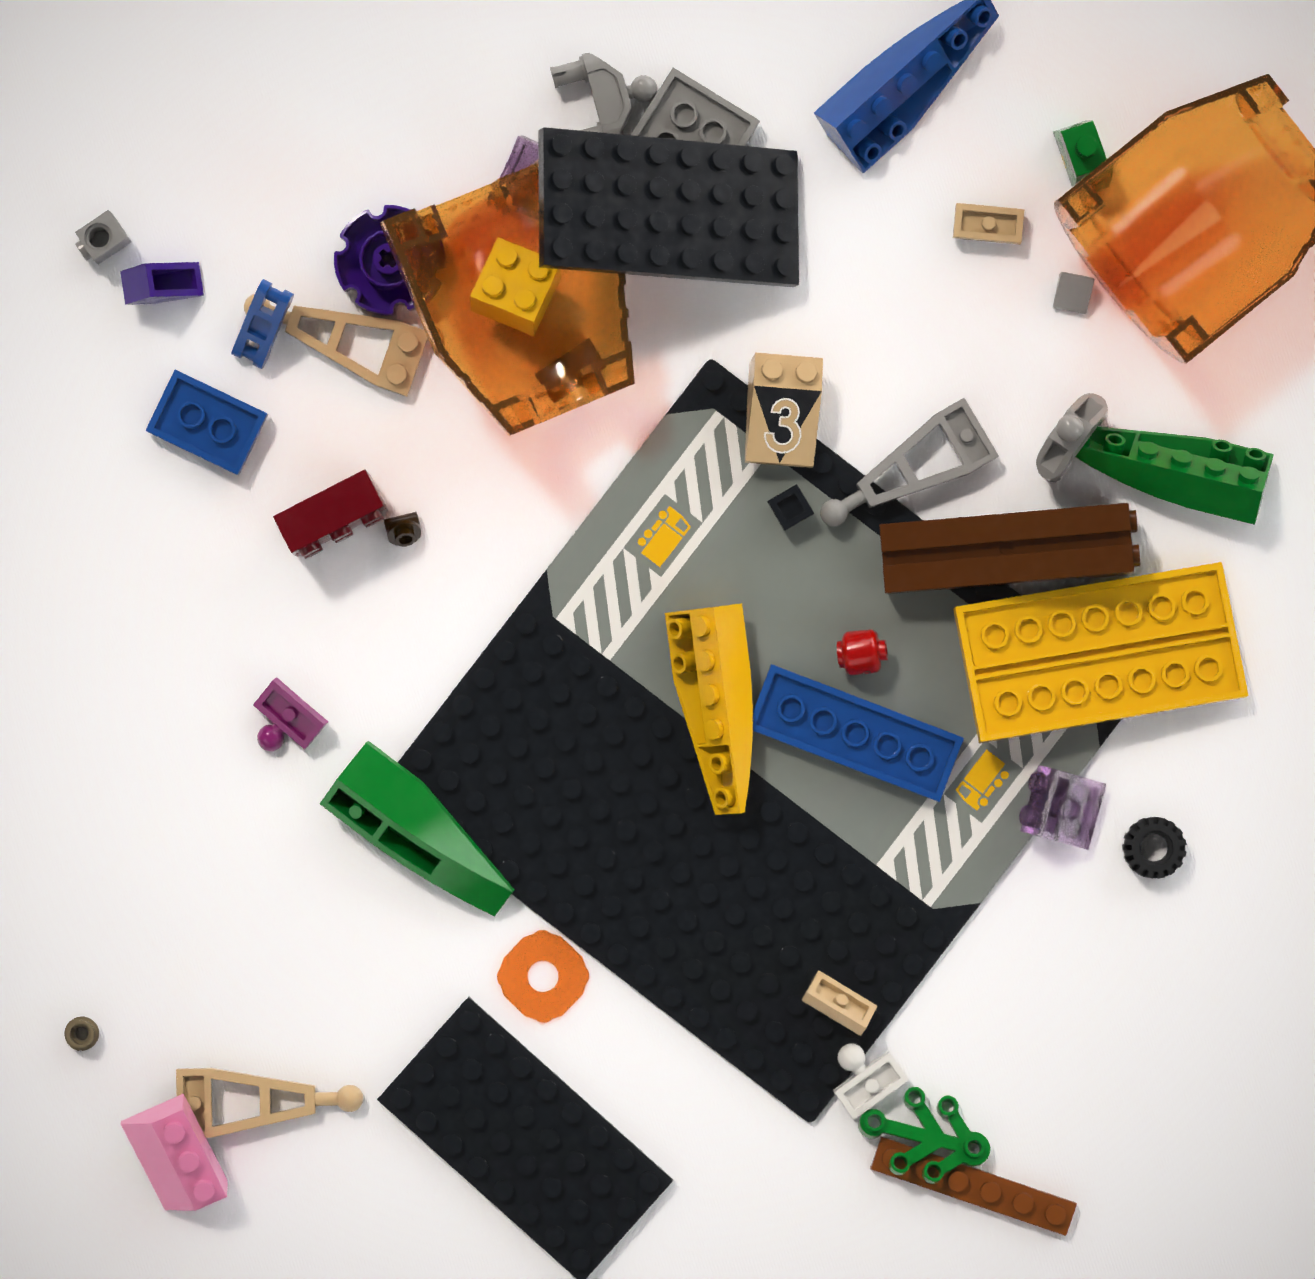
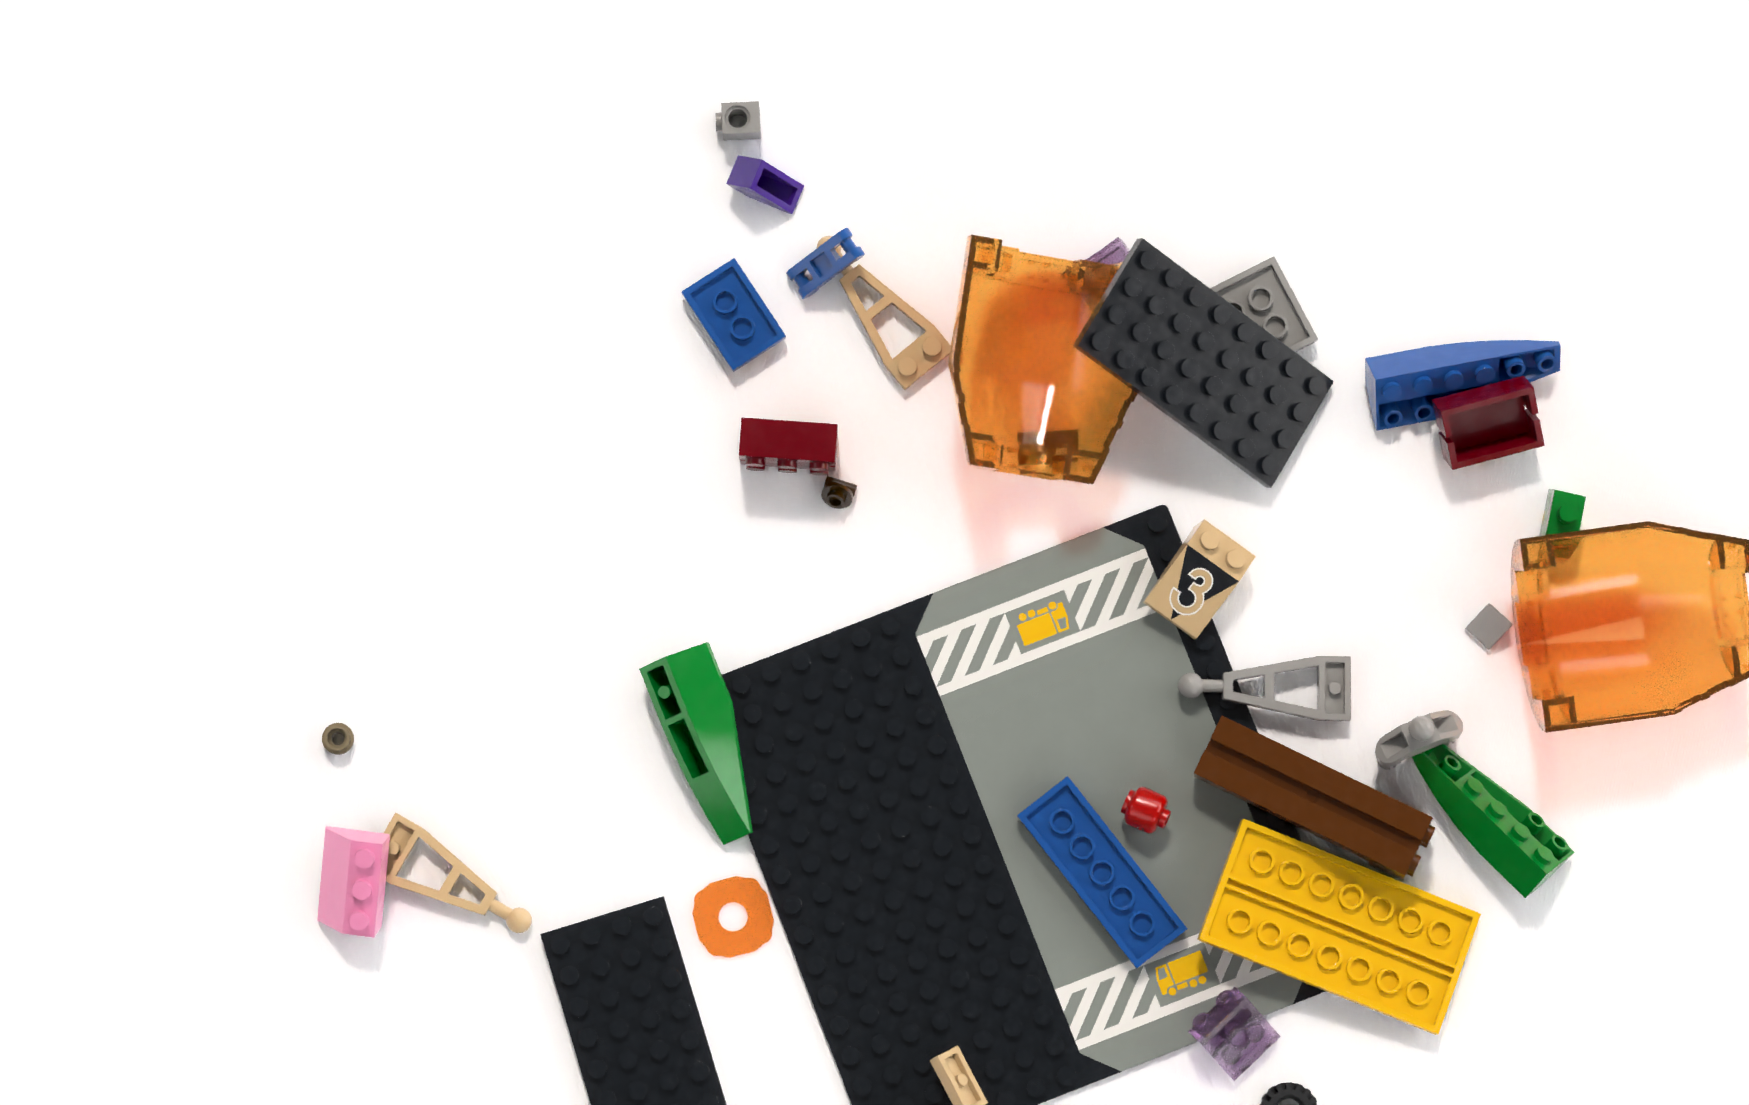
camera: 30 degrees right, 5 degrees down
(289, 715) = (657, 585): magenta plate -> none
(361, 262) = (930, 266): dark purple piece -> none
(514, 287) = (1043, 353): yellow brick -> none
(607, 89) = (1211, 243): light grey connector -> none
(716, 697) = (1007, 775): yellow wedge -> none
(790, 507) = (1158, 660): black plate -> none
(962, 105) = (1488, 422): none -> dark red piece
(988, 223) = (1453, 530): tan plate -> none

